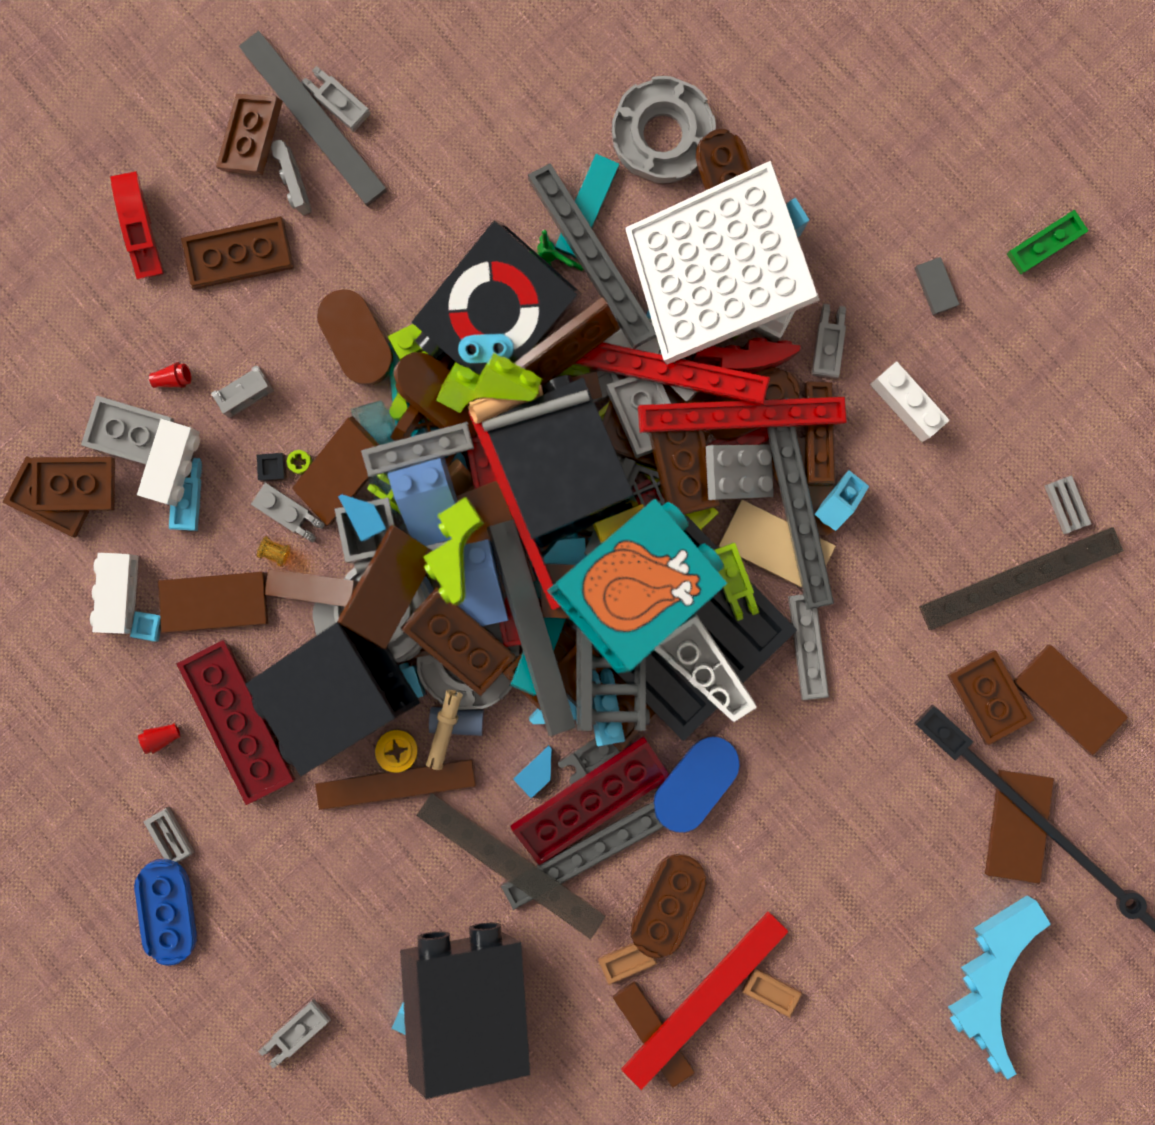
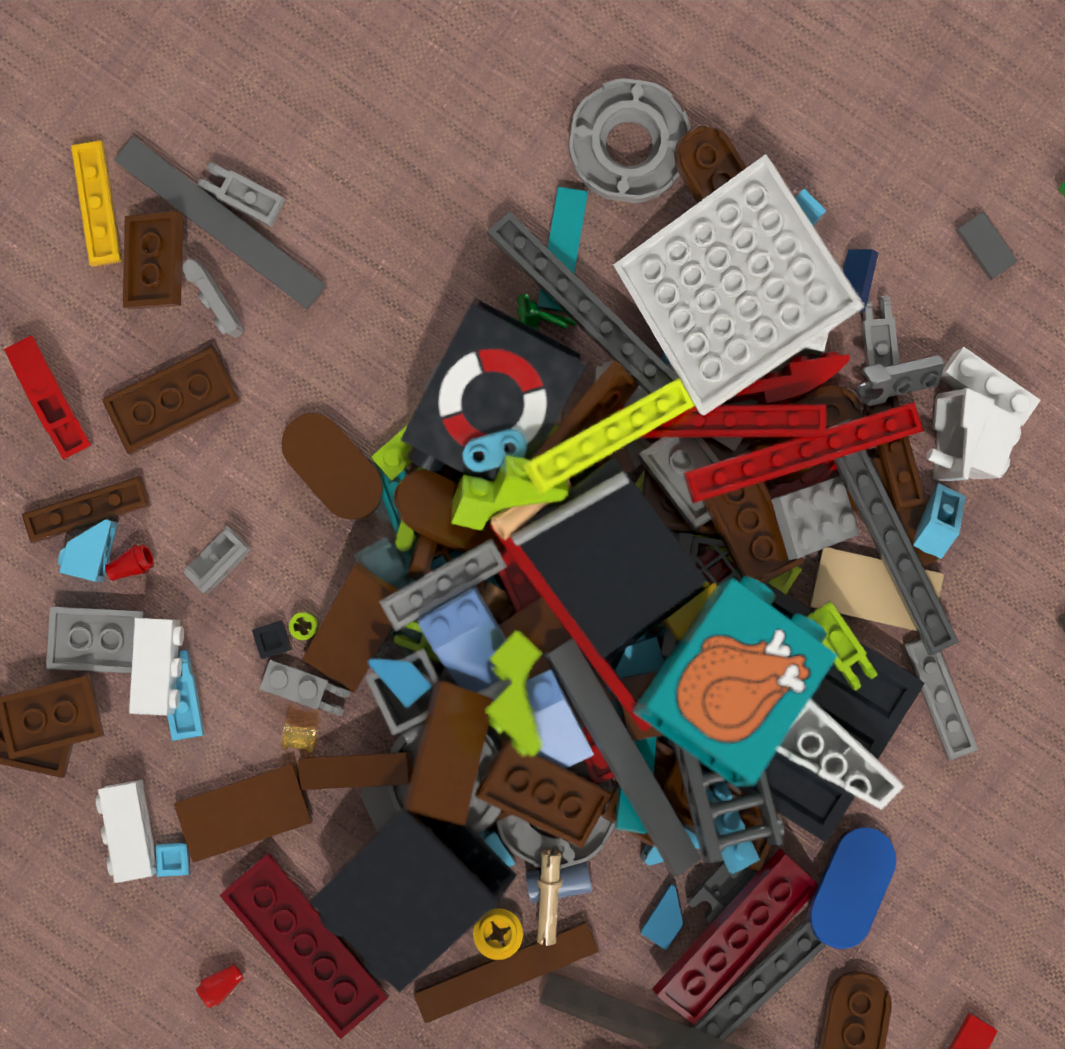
camera: 20 degrees left, 0 degrees up
(140, 358) = (89, 552): none -> medium azure slope
(146, 325) = (86, 509): none -> reddish brown tile
(216, 78) = (96, 203): none -> yellow tile
(582, 358) = (608, 436): none -> neon yellow tile
(825, 282) = (859, 271): none -> dark blue tile
(837, 376) = (899, 379): none -> dark grey plate
(885, 436) = (971, 437): none -> white piece

